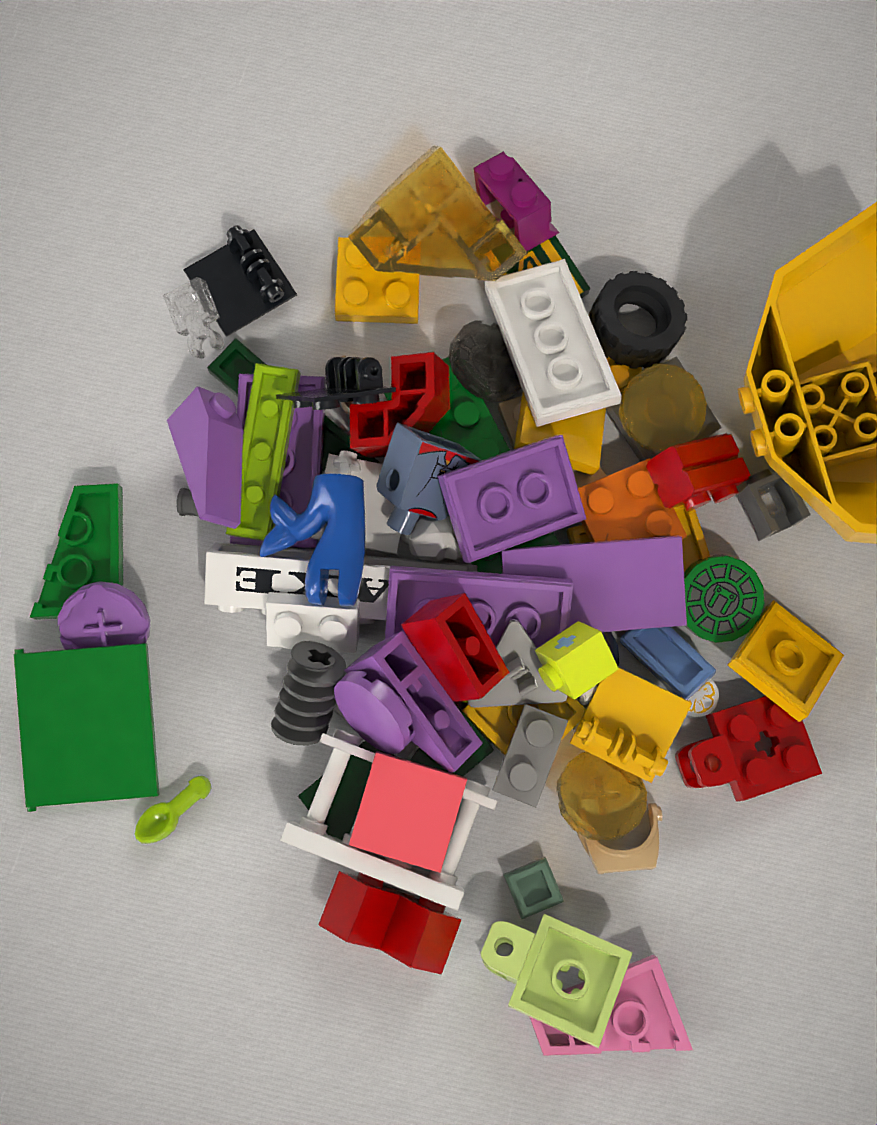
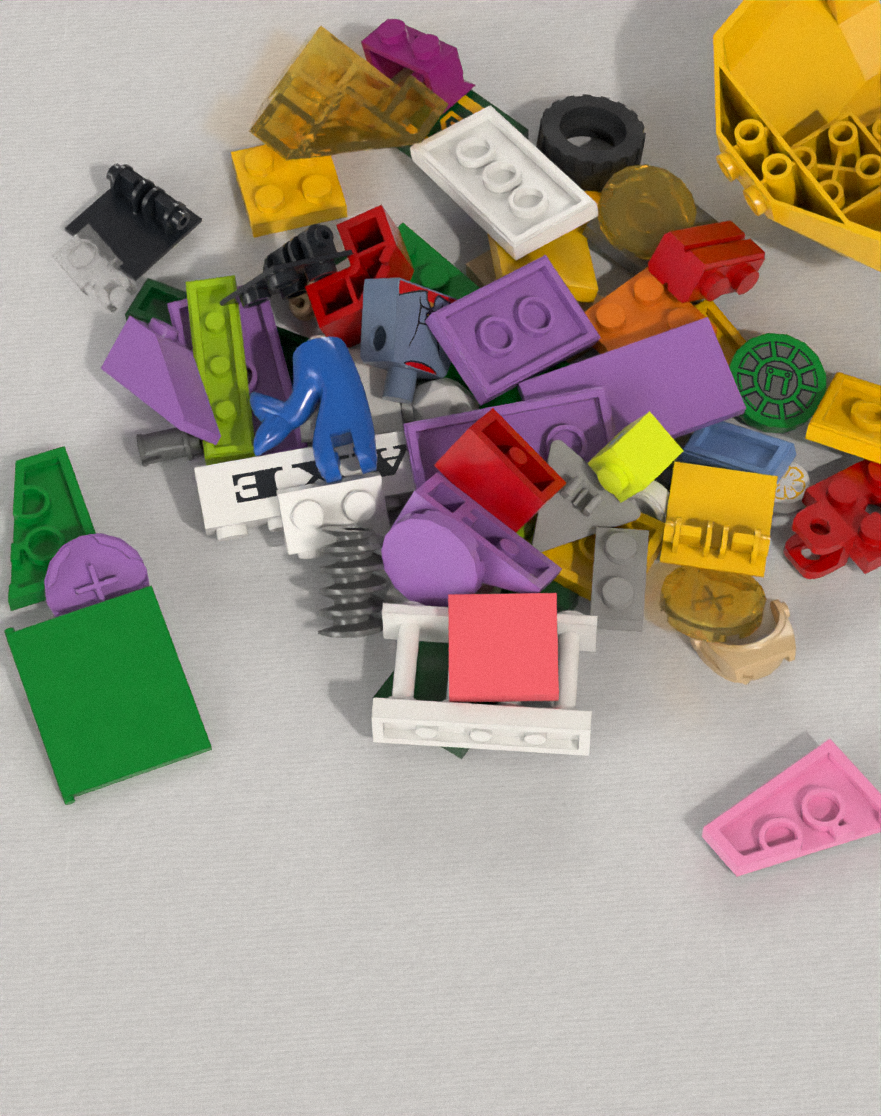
camera: 10 degrees left, 20 degrees down
(163, 817) = (226, 764): lime piece -> none
(385, 919) = (494, 782): red brick -> none
(483, 362) = (438, 224): clear smoke tile -> none
(533, 888) = (670, 721): sand green tile -> none
(535, 969) = (700, 775): yellowish green plate -> none
(772, 504) = (802, 278): dark grey window -> none

